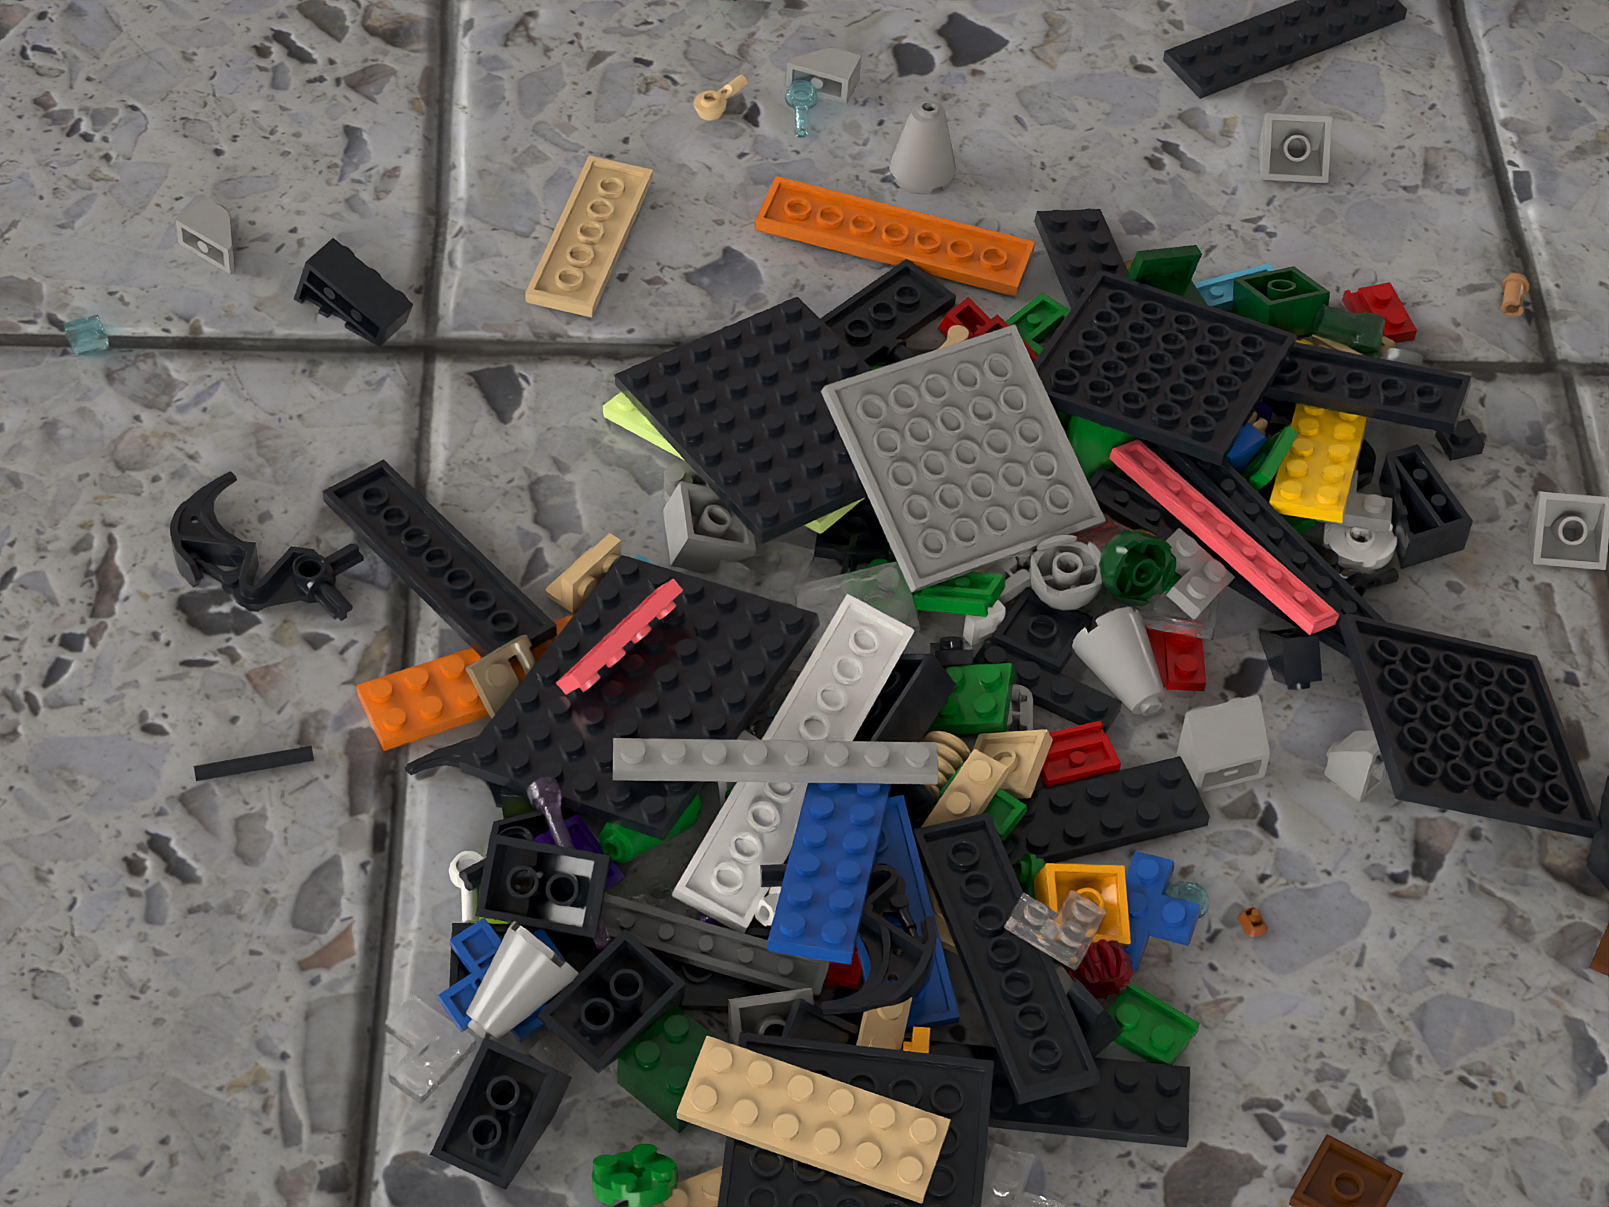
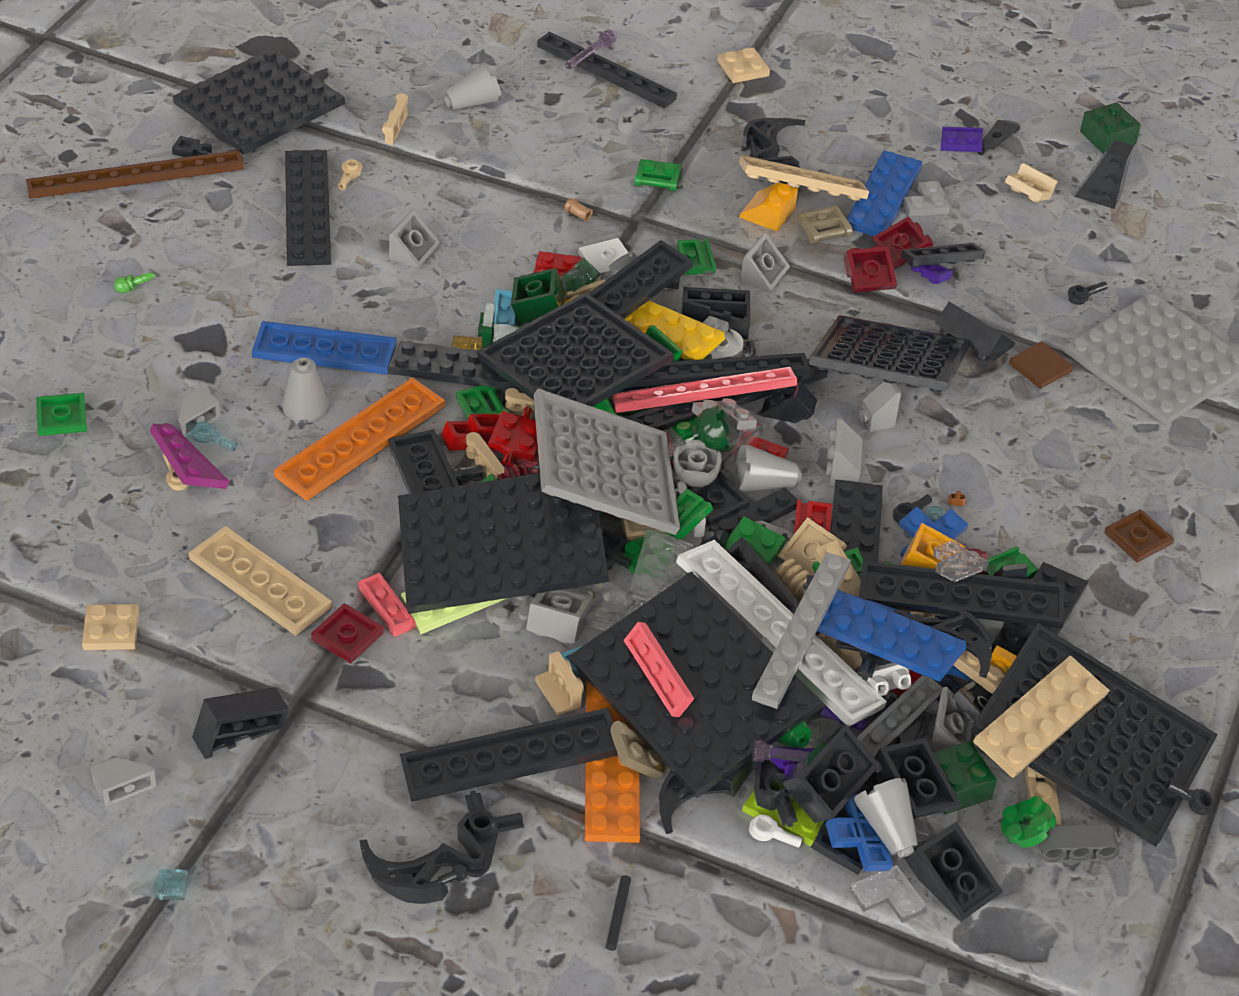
camera: 65 degrees left, 5 degrees down
(441, 141) = (110, 627): none -> tan plate
(553, 344) = (347, 633): none -> dark red plate
(641, 347) = (386, 604): none -> coral tile
(740, 96) = (186, 459): none -> magenta wing
(1030, 143) = (324, 347): none -> blue plate
(1191, 869) = (905, 508): none -> black plate
(1391, 47) = (351, 170): none -> tan plate
(1448, 351) = (603, 254): none -> white plate
(1525, 452) = (699, 253): none -> green plate
(1528, 49) = (395, 119): none -> tan plate

